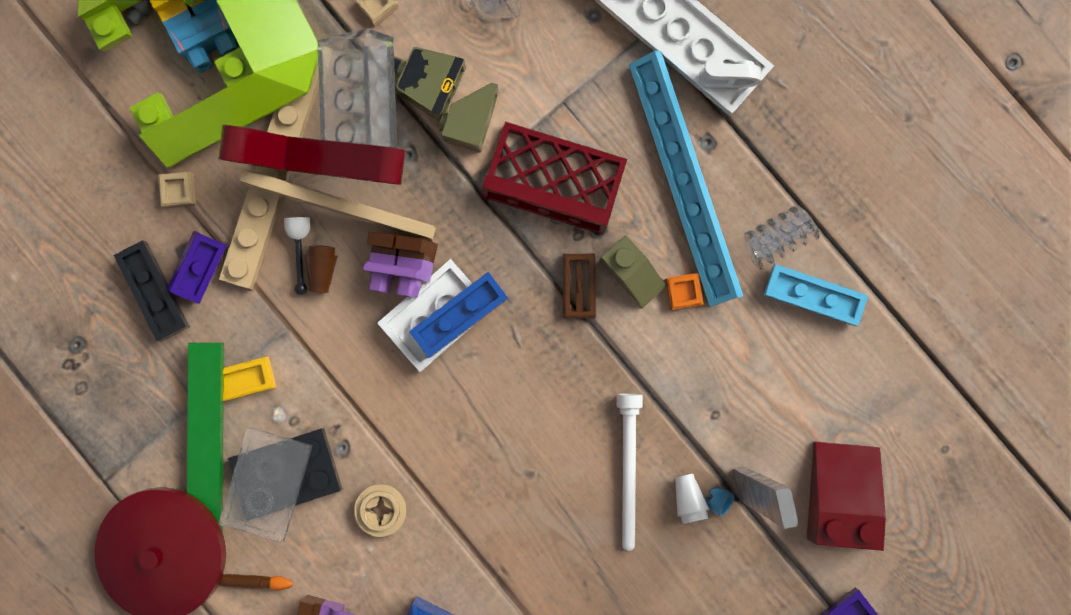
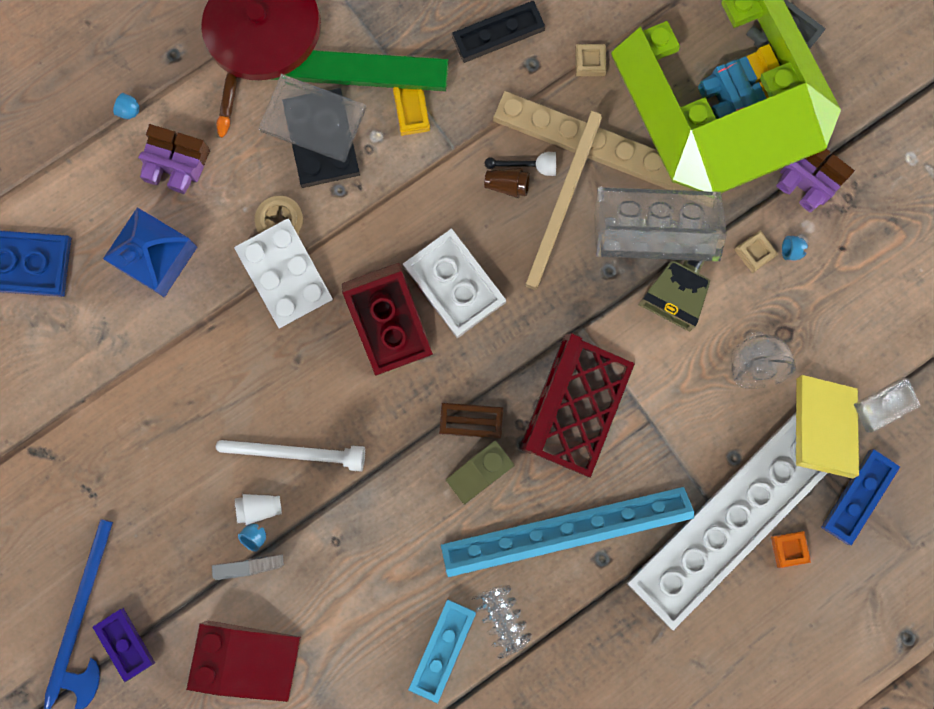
camera: 90 degrees right, 5 degrees down
(196, 267) = (516, 71): dark purple plate -> none
(312, 155) = (609, 174): dark red beam -> none
(399, 257) = (509, 255): medium lavender hips -> none
(440, 498) = (283, 273): none -> white plate
(458, 315) = (451, 302): blue plate -> none
(470, 118) = (639, 330): olive slope -> none
(479, 384) = (386, 318): none -> dark red slope
(684, 291) = (457, 522): orange tile -> none
(737, 75) = (664, 592): white plate -> none

